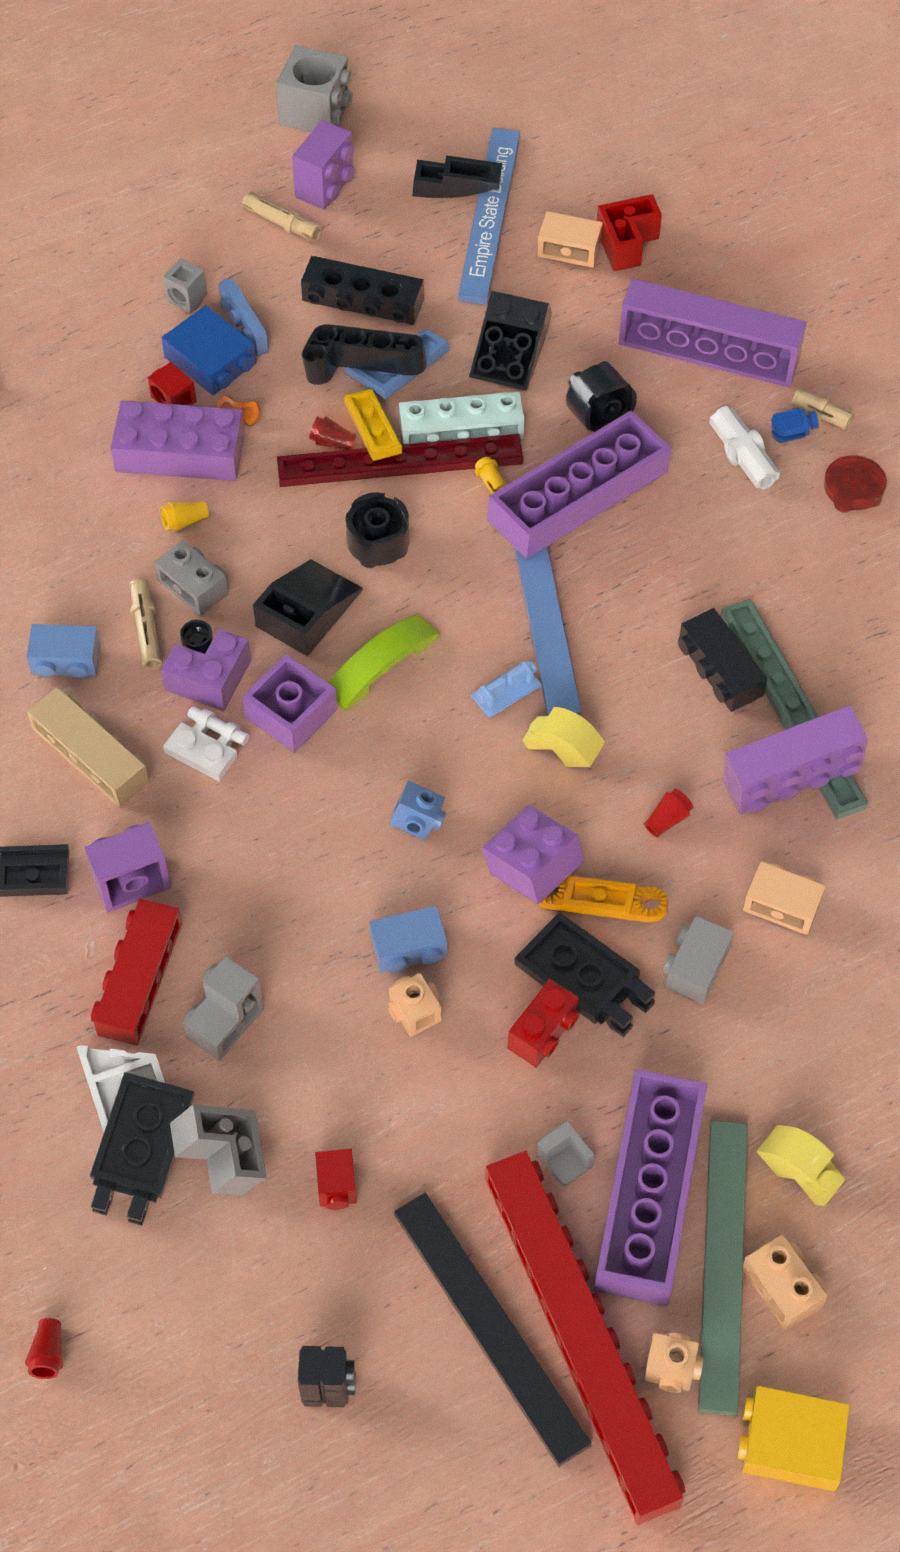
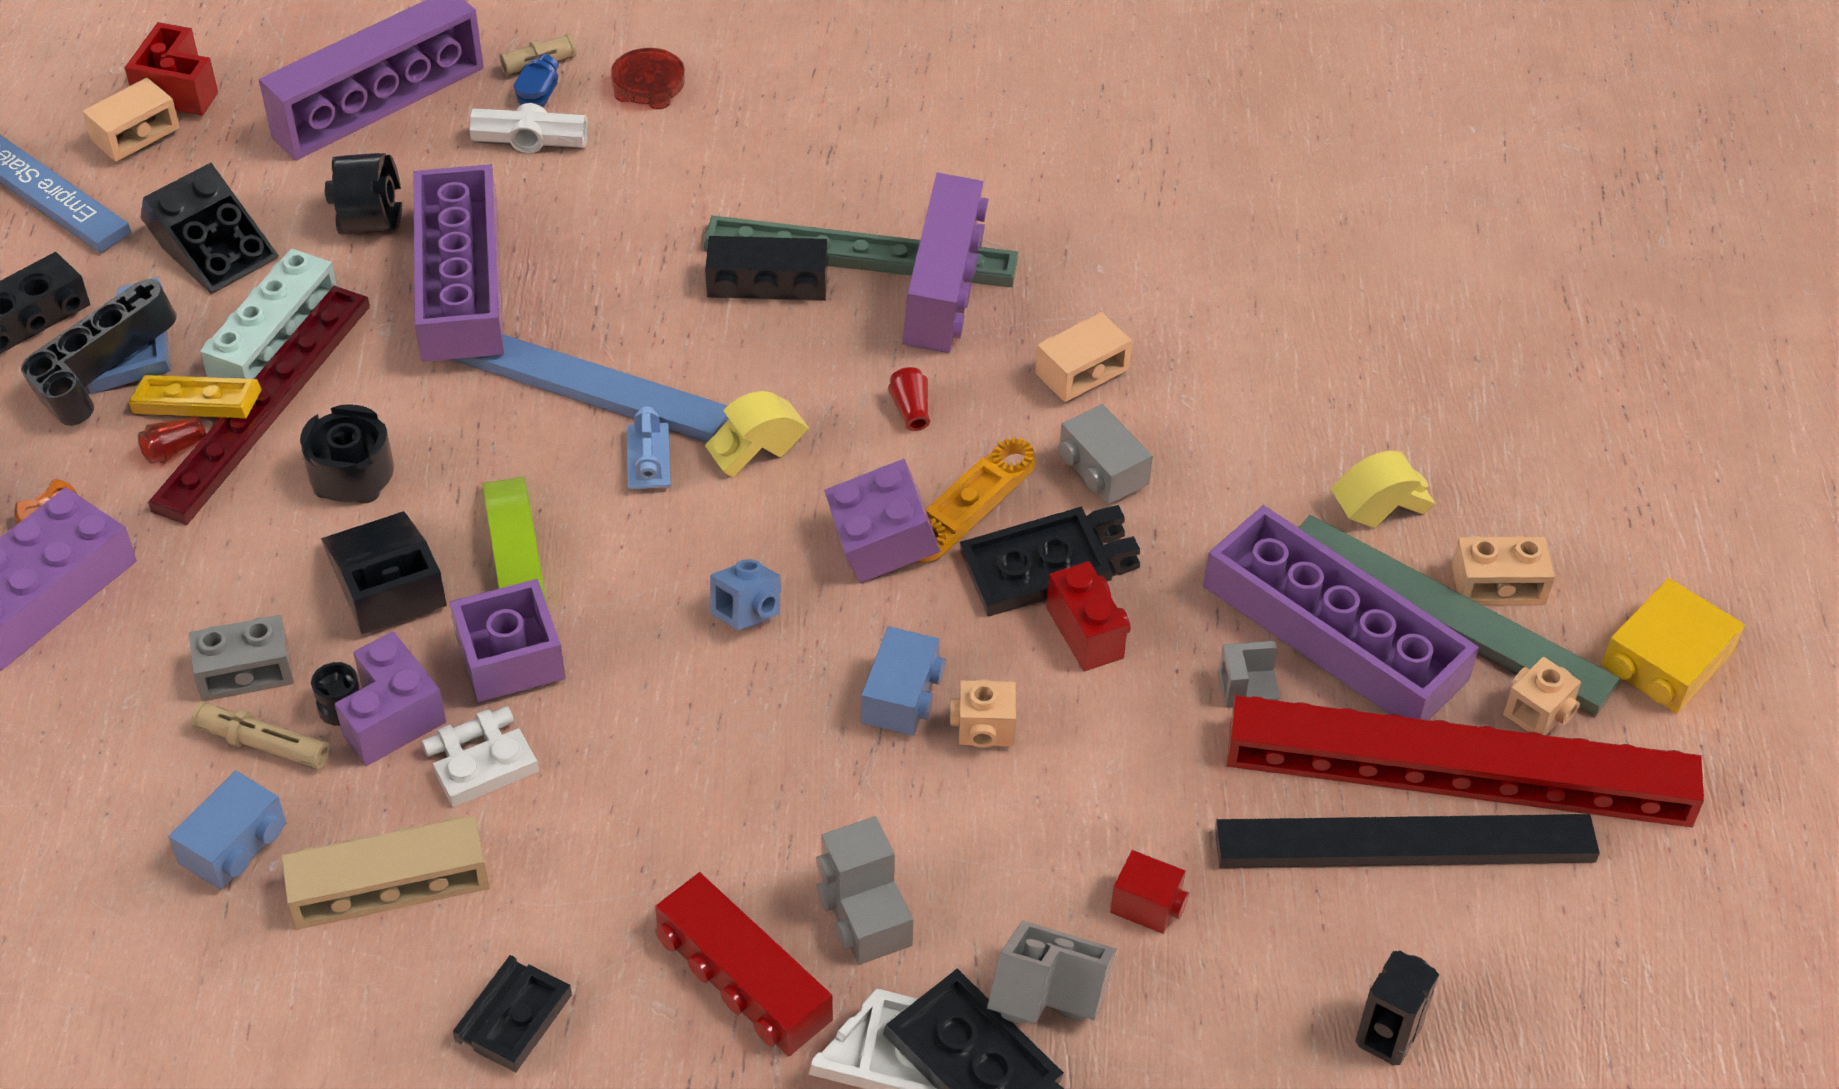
camera: 60 degrees left, 10 degrees down
(128, 866) = (600, 897): medium lavender brick -> none
(181, 514) = (139, 628): yellow cone -> none
(487, 470) = (366, 333): yellow pin -> none

